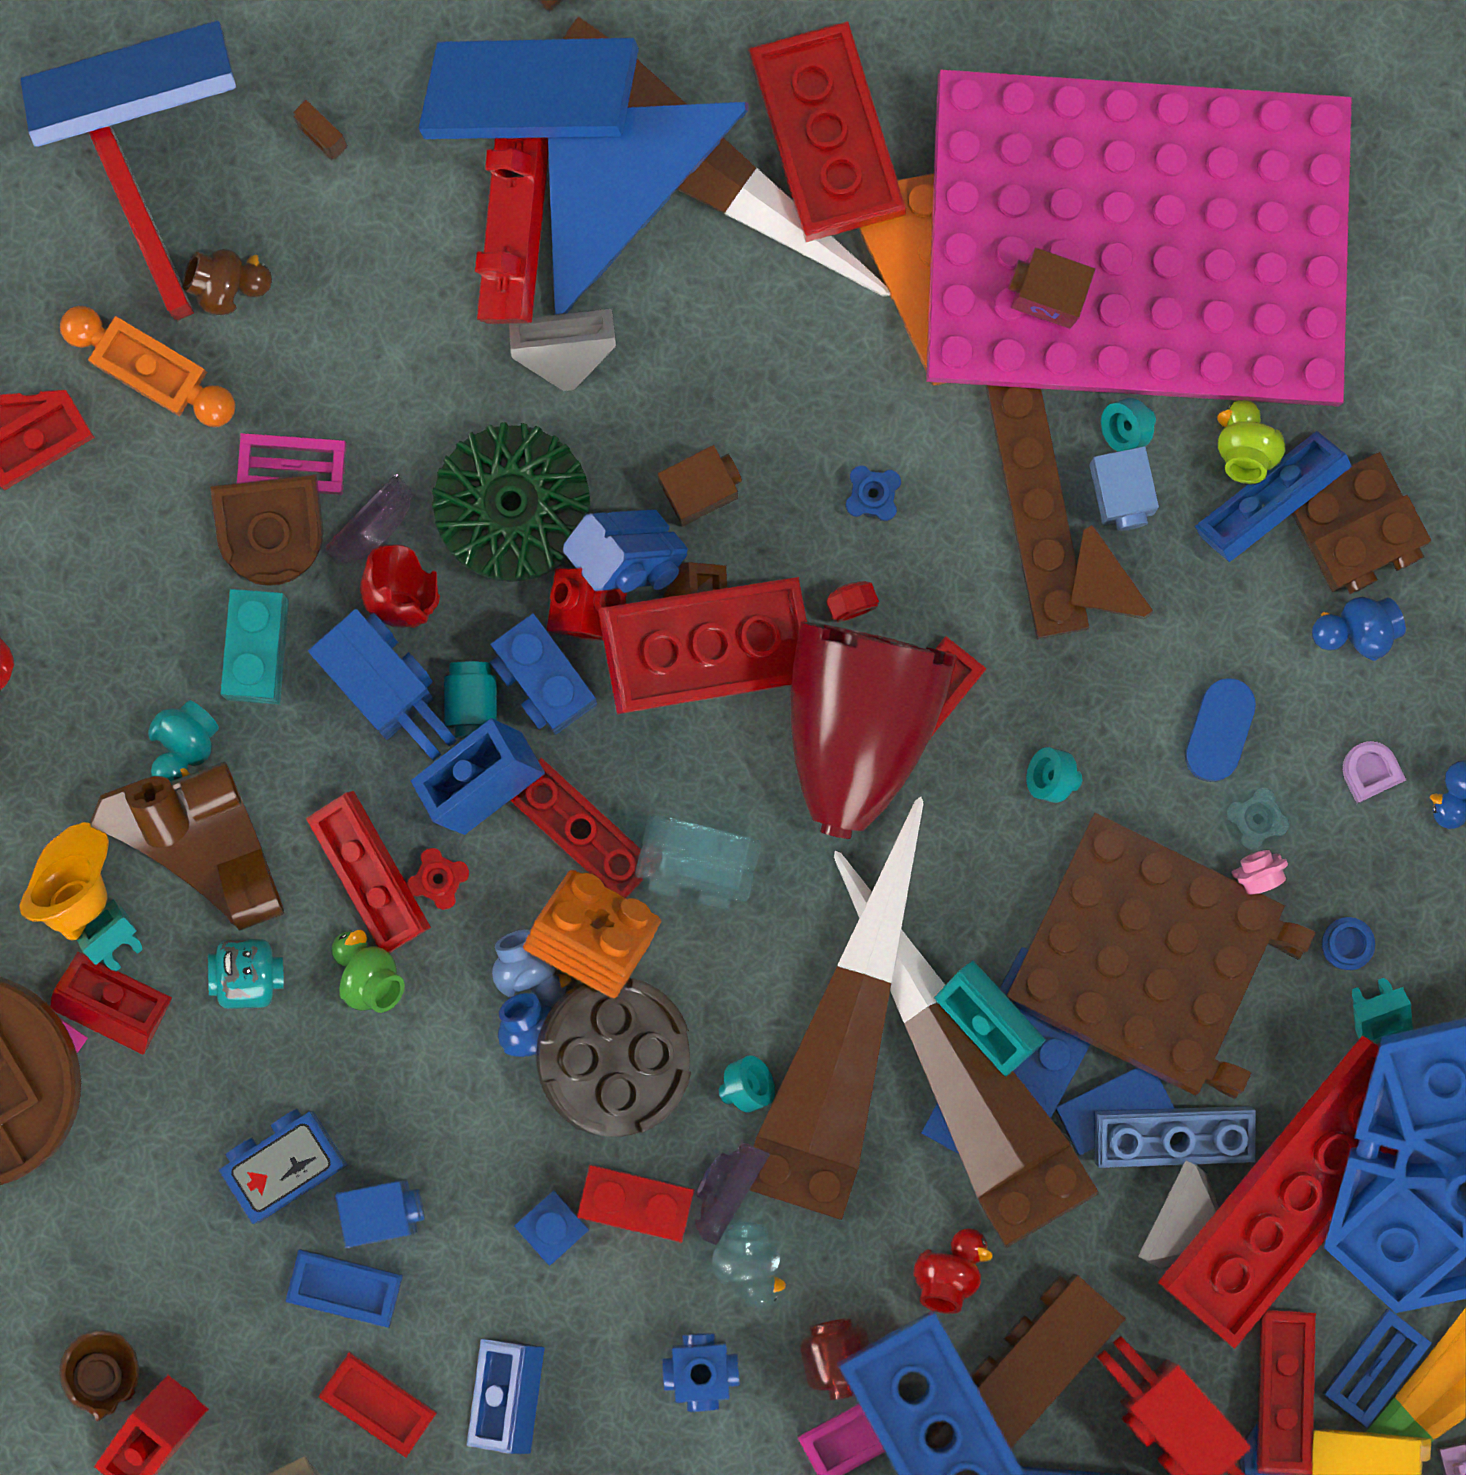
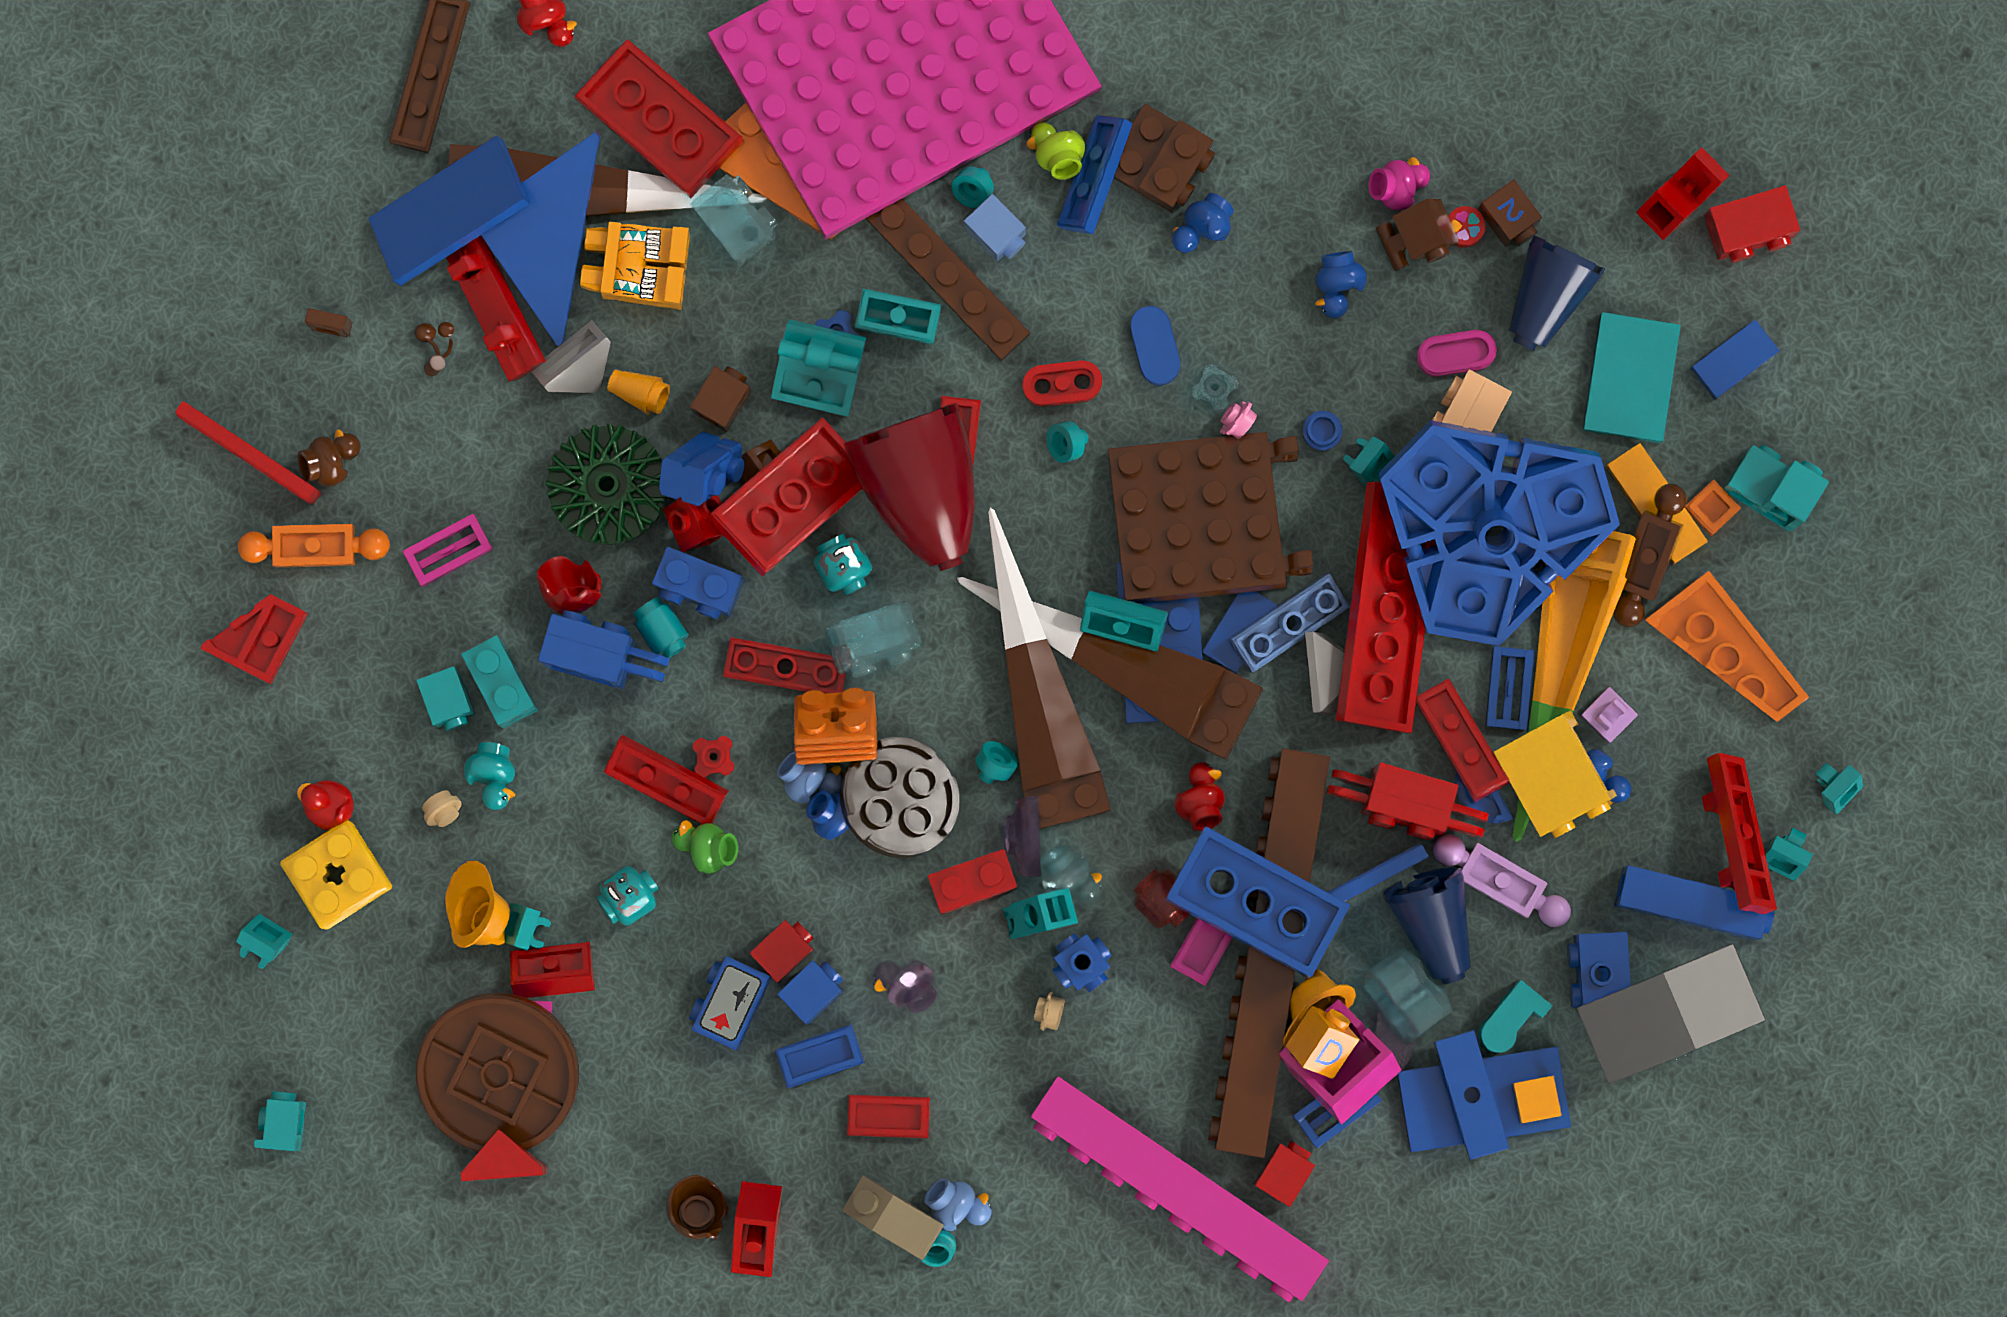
camera: 30 degrees left, 0 degrees up
(102, 747) = (441, 809): none -> tan plate
(127, 83) = (183, 370): blue tile -> none
(184, 628) = (446, 699): none -> teal brick
(200, 835) = (541, 825): reddish brown panel -> none
(269, 527) = (459, 599): reddish brown tile -> none
(372, 523) = (525, 555): clear purple tile -> none
(378, 1145) = (783, 950): none -> red brick
(421, 209) = (426, 333): none -> reddish brown piece
(477, 776) = (697, 674): blue brick -> none
(490, 1273) = (906, 986): none -> clear purple animal
(505, 1396) = (967, 1059): blue slope -> none
(551, 1227) = (928, 933): blue plate -> none
(615, 420) = (640, 390): none -> light orange cone
(630, 1402) = (1049, 1011): none -> tan plate
(683, 275) = (639, 264): none -> light orange hips
(688, 1289) = (1040, 913): none -> teal leg
(716, 755) = (842, 564): none -> teal head
(828, 519) = (818, 367): none -> teal plate
(840, 296) = (734, 218): none -> clear light blue brick
(852, 601) = (867, 411): red tile -> none
(953, 517) = (898, 316): none -> teal brick
(1050, 287) = (867, 129): reddish brown brick -> none
(1089, 706) = (1061, 382): none -> red plate
(1103, 582) = (1021, 297): reddish brown slope -> none
(1371, 770) = (1267, 311): lavender tile -> none

